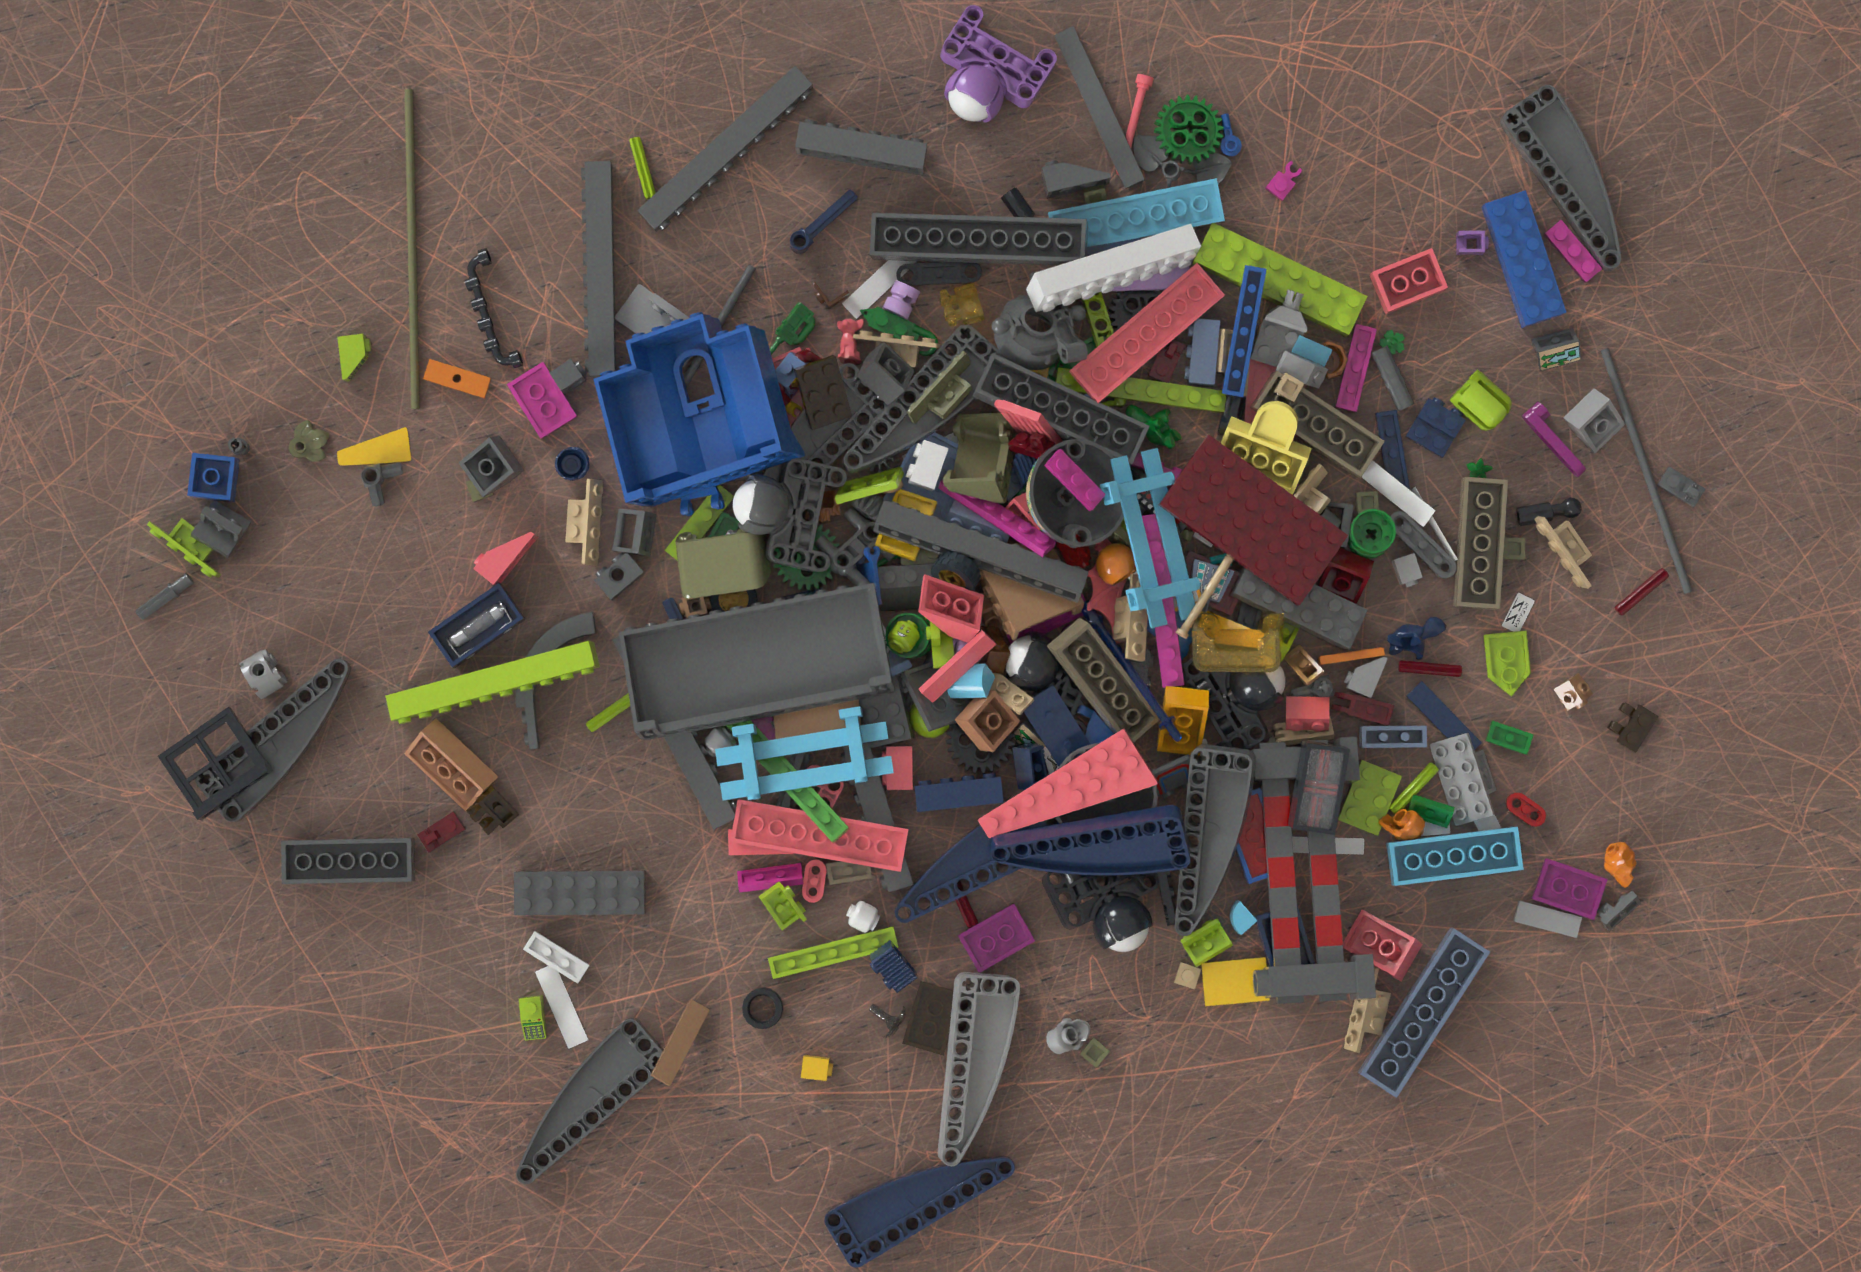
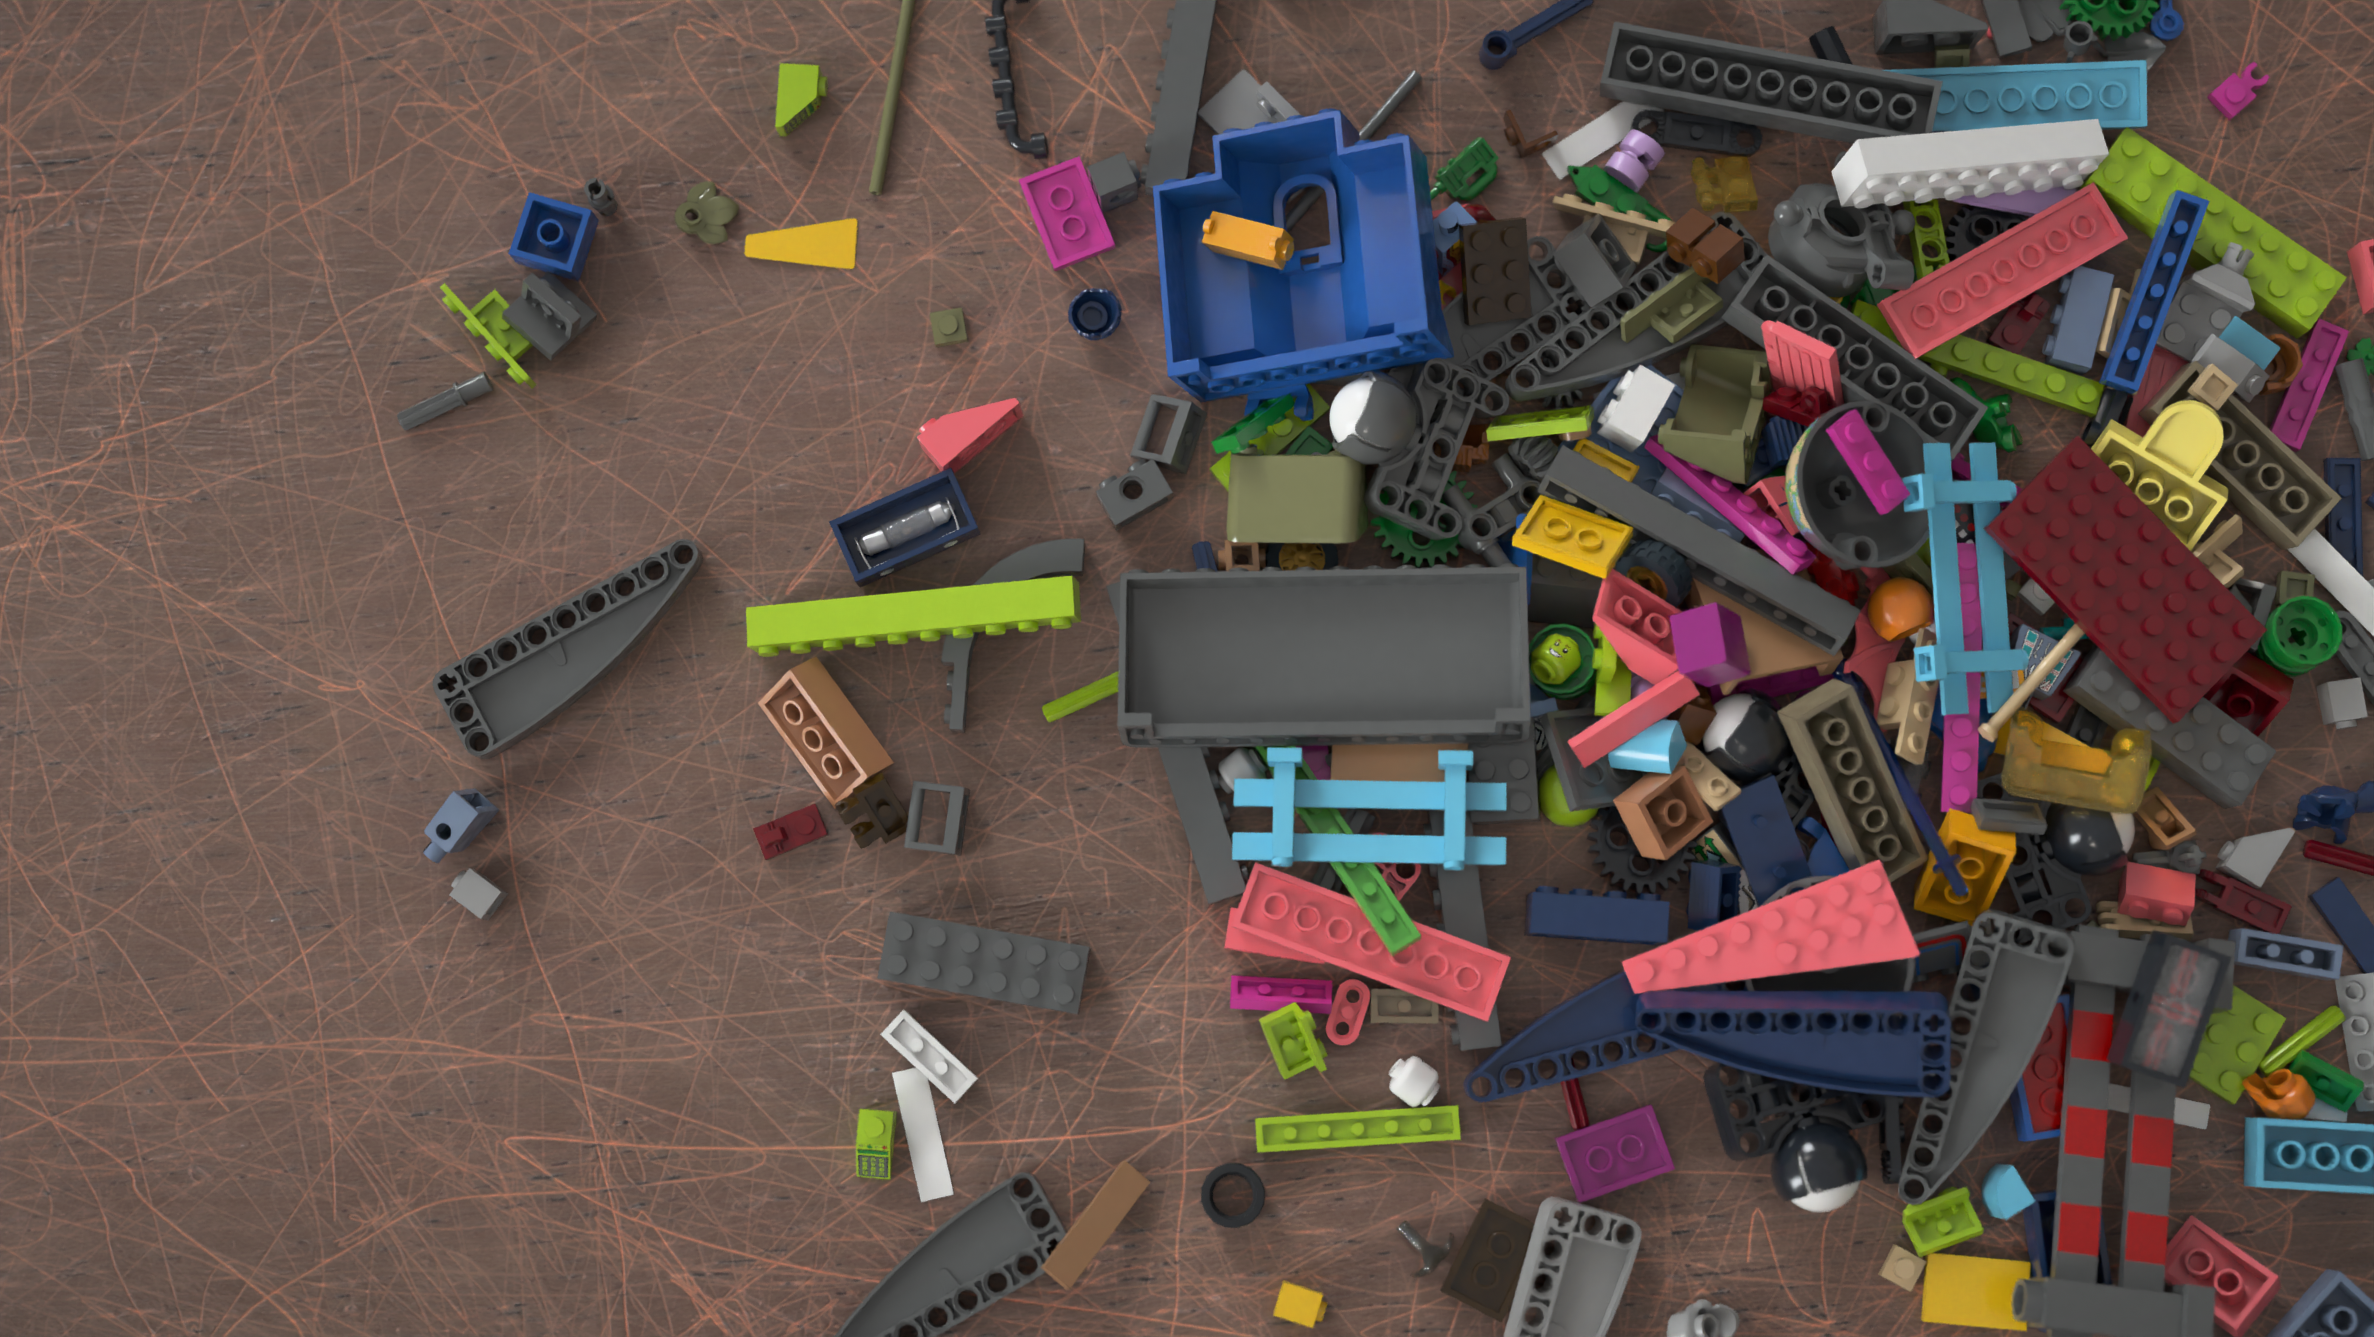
camera: 15 degrees right, 5 degrees down
(229, 866) = (458, 823): none -> sand blue torso
(232, 788) = (486, 704): black window -> none
(250, 908) = (477, 893): none -> light grey brick
(262, 674) = (568, 541): light grey brick -> none
(348, 860) = (639, 848): dark grey brick -> none
(382, 472) = (807, 277): dark grey axle -> none
(444, 375) = (929, 150): orange tile -> none
(491, 466) = (972, 294): dark grey slope -> none
(544, 803) = (954, 823): none -> dark grey tile
(584, 522) = (1097, 404): tan bracket -> none
(660, 402) = (1248, 240): none -> light orange brick
(686, 520) = (1253, 424): none -> green plate
(848, 344) = (1543, 210): coral animal -> none
(893, 967) = (1447, 1168): dark blue brick -> none
(899, 558) = (1572, 536): none -> yellow tile
(902, 765) = (1513, 878): coral brick -> none
(957, 357) = (1710, 254): none -> reddish brown piece
(995, 613) = (1710, 644): none -> magenta piece
(1203, 684) = (2008, 816): none -> dark grey tile
(1349, 656) = (2233, 818): orange tile -> none

